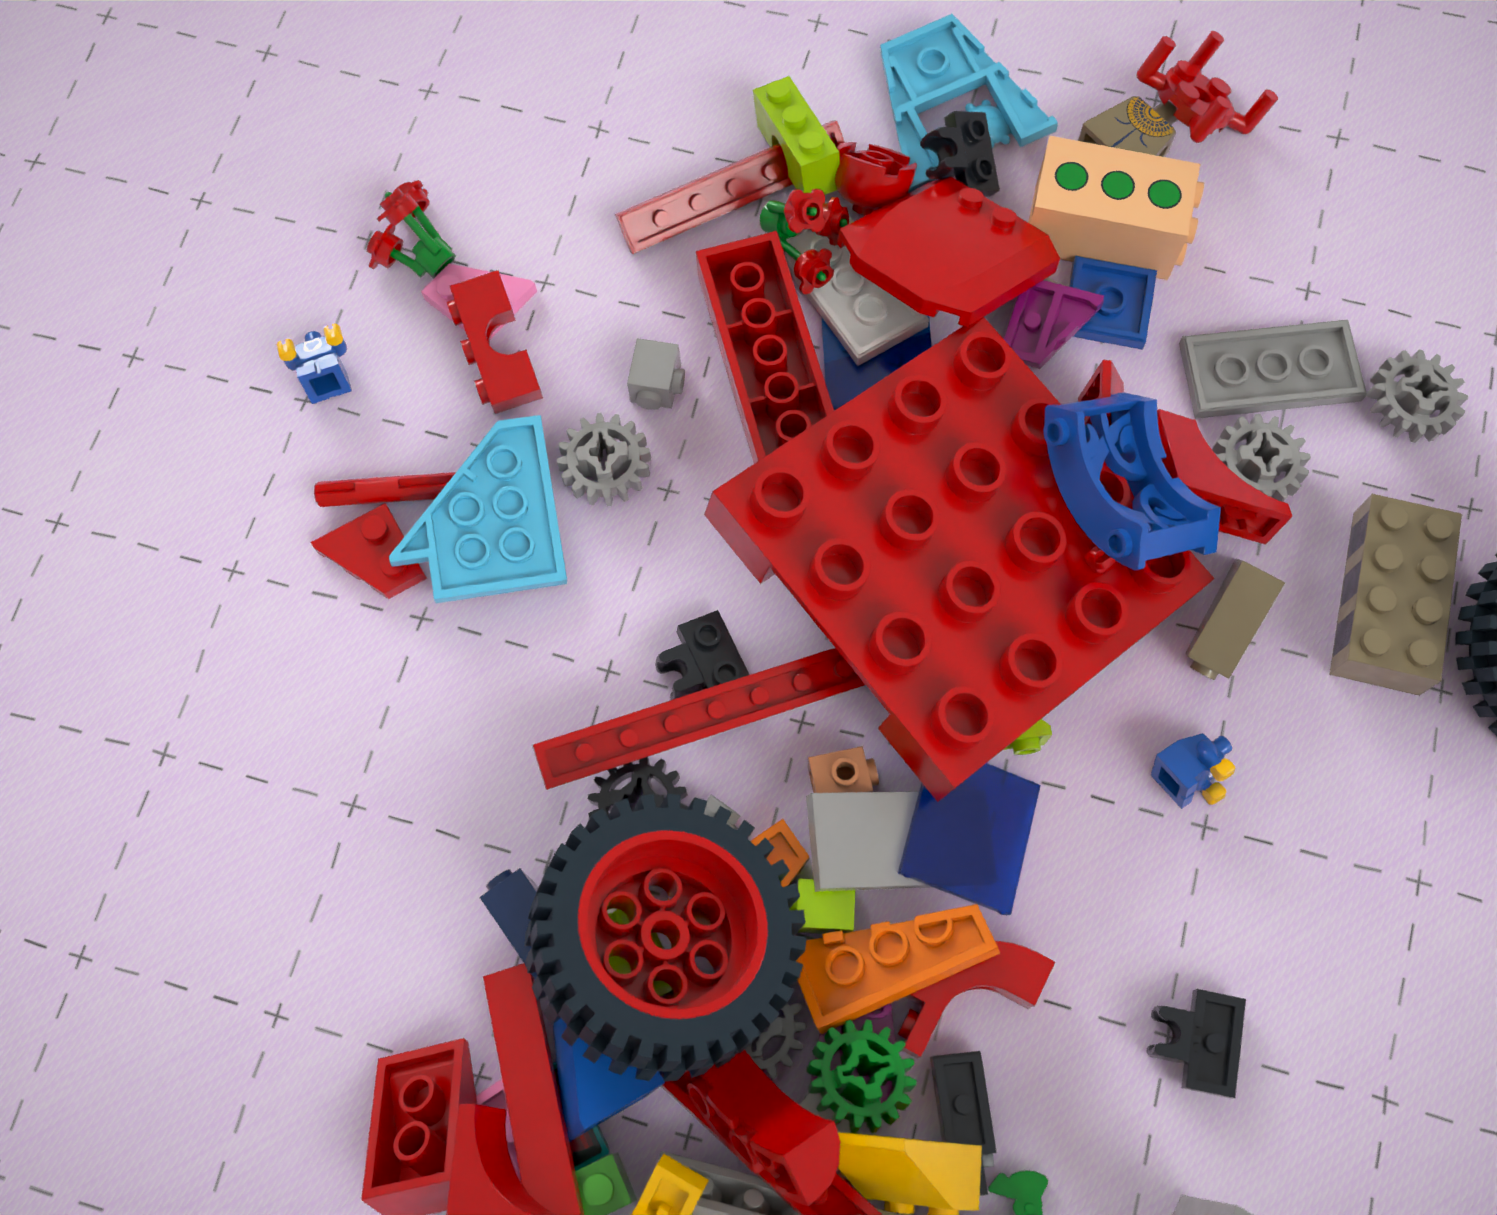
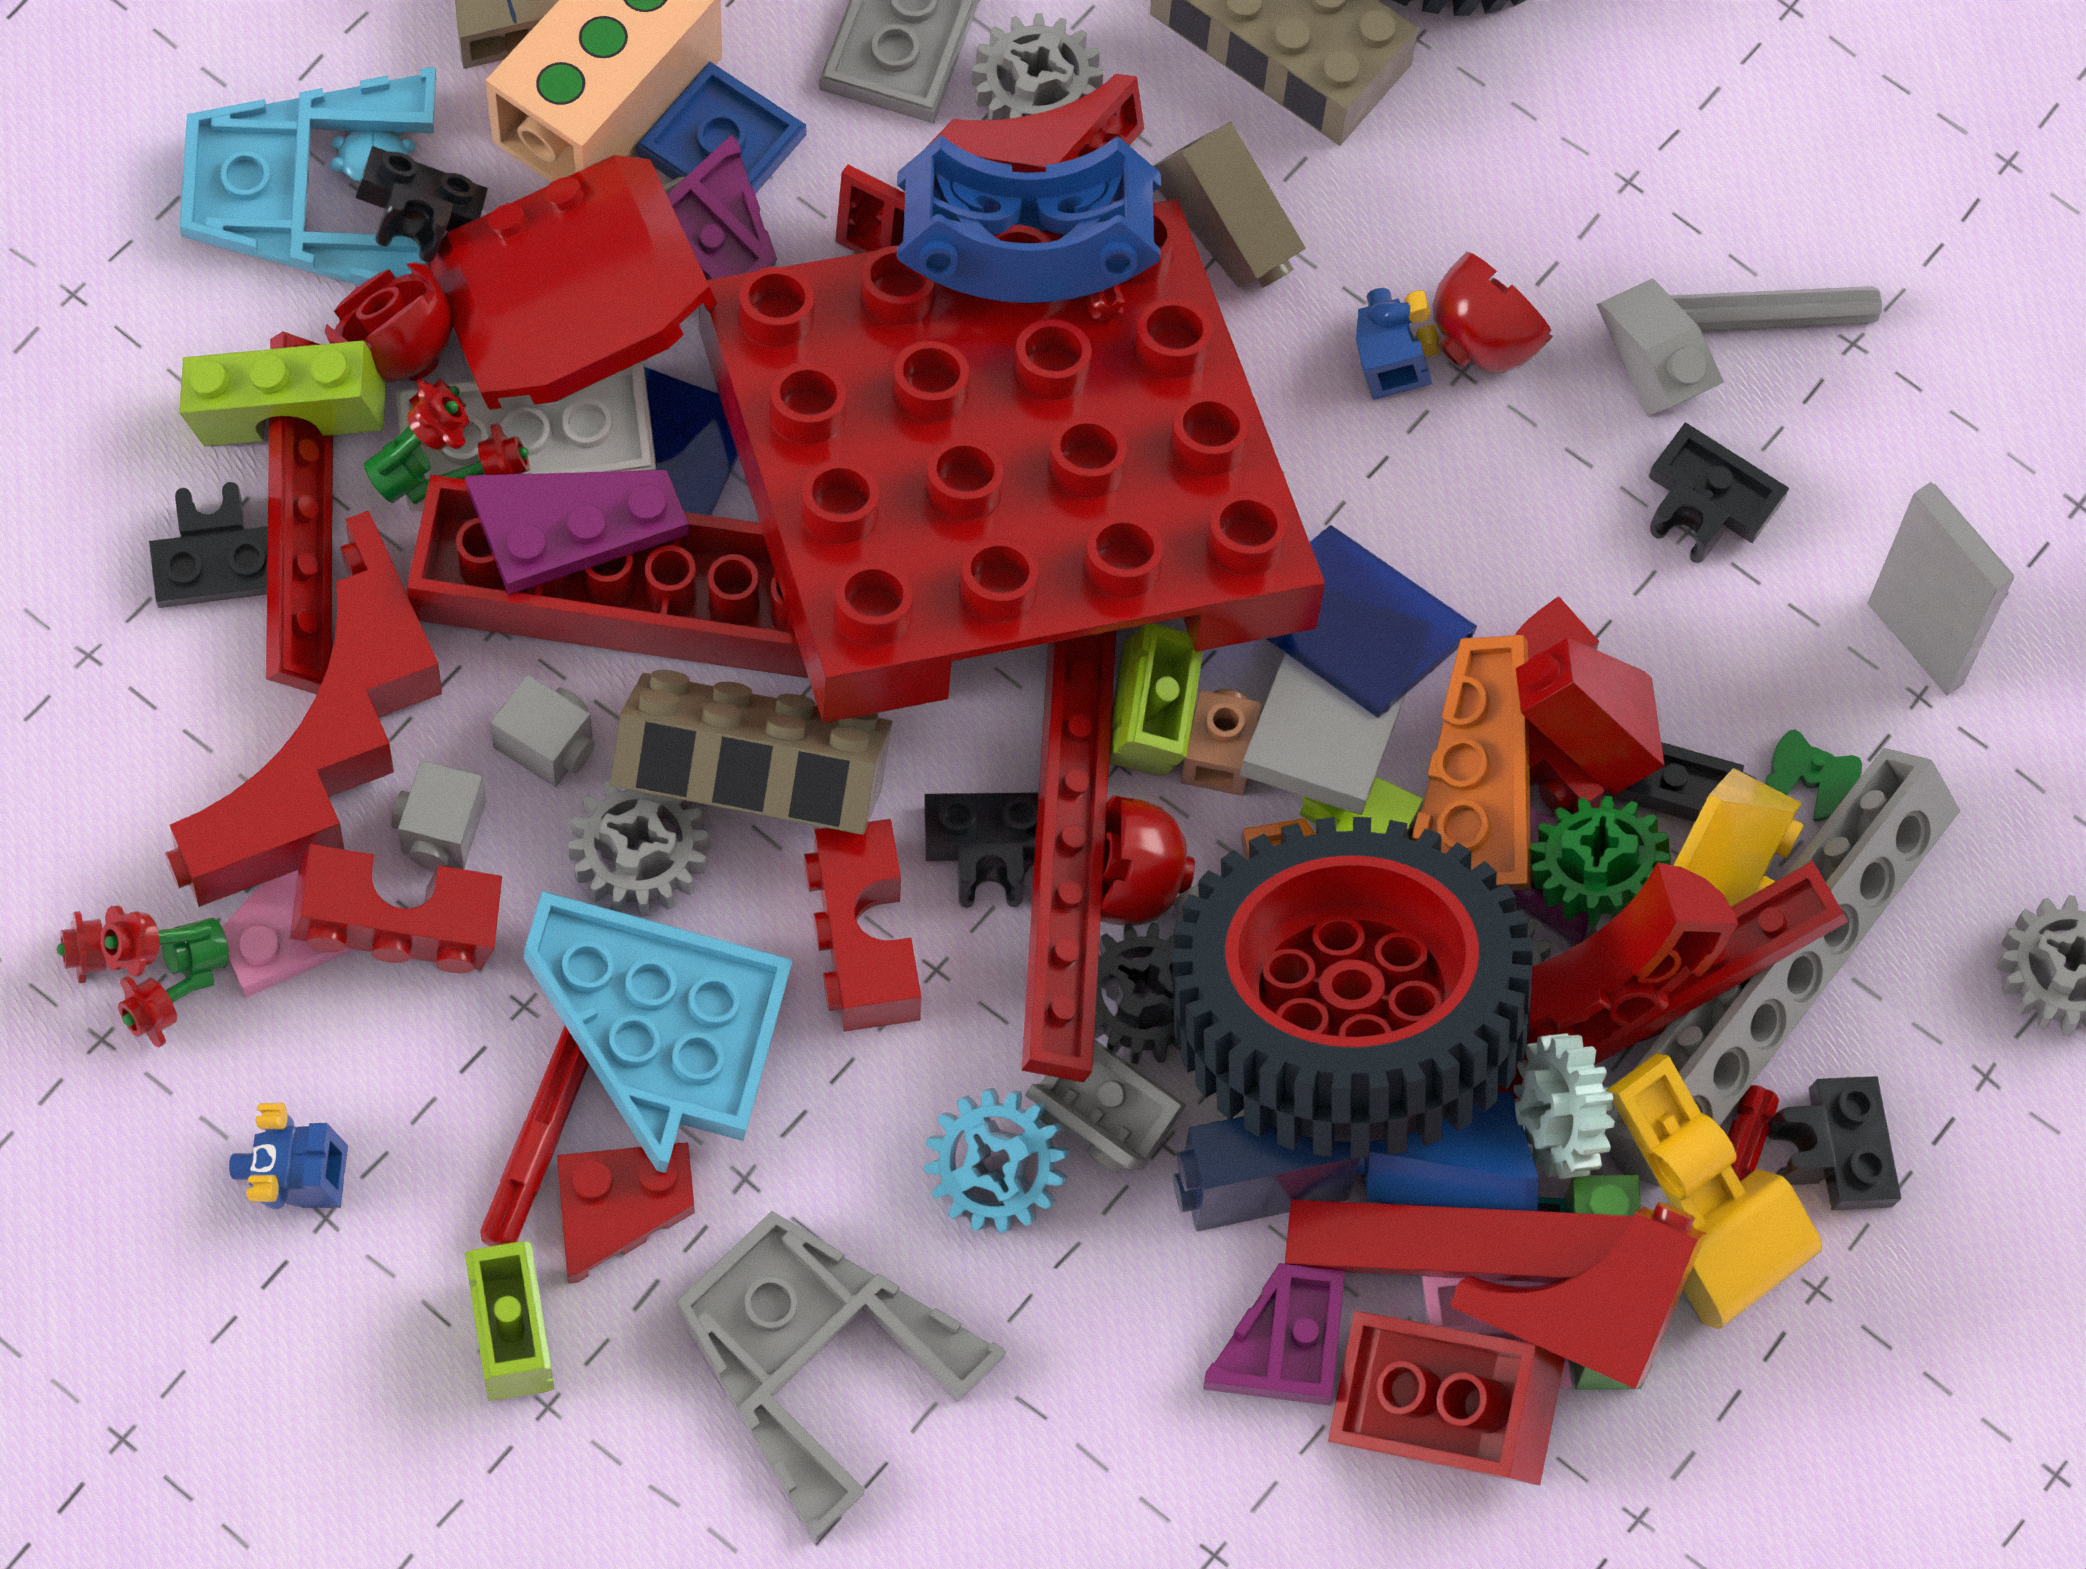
camera: 75 degrees left, 5 degrees down
(258, 520) = (509, 1320): none -> lime brick
(330, 669) = (774, 1310): none -> light grey wing
(432, 1000) = (1286, 1339): none -> magenta wing
(478, 759) = (982, 1137): none -> medium azure gear
(543, 817) = (1113, 1110): none -> light grey bracket
(572, 344) = (439, 815): none -> light grey brick
(637, 587) = (871, 978): none -> red arch
(649, 263) = (373, 670): none -> red arch
(650, 1126) = (1564, 1105): none -> light aqua gear
(673, 468) = (749, 752): none -> dark tan brick
(689, 154) = (213, 555): none -> black plate
(722, 761) = (1142, 862): none -> red cylinder
(781, 317) = (572, 521): none -> magenta wing
(840, 722) = (1154, 700): none -> lime brick
(969, 1024) = (1594, 712): none -> red slope
(1244, 822) = (1486, 319): none -> red cylinder
(1293, 955) = (1659, 346): none -> light grey slope
(1372, 1021) = (1782, 307): none -> light grey axle

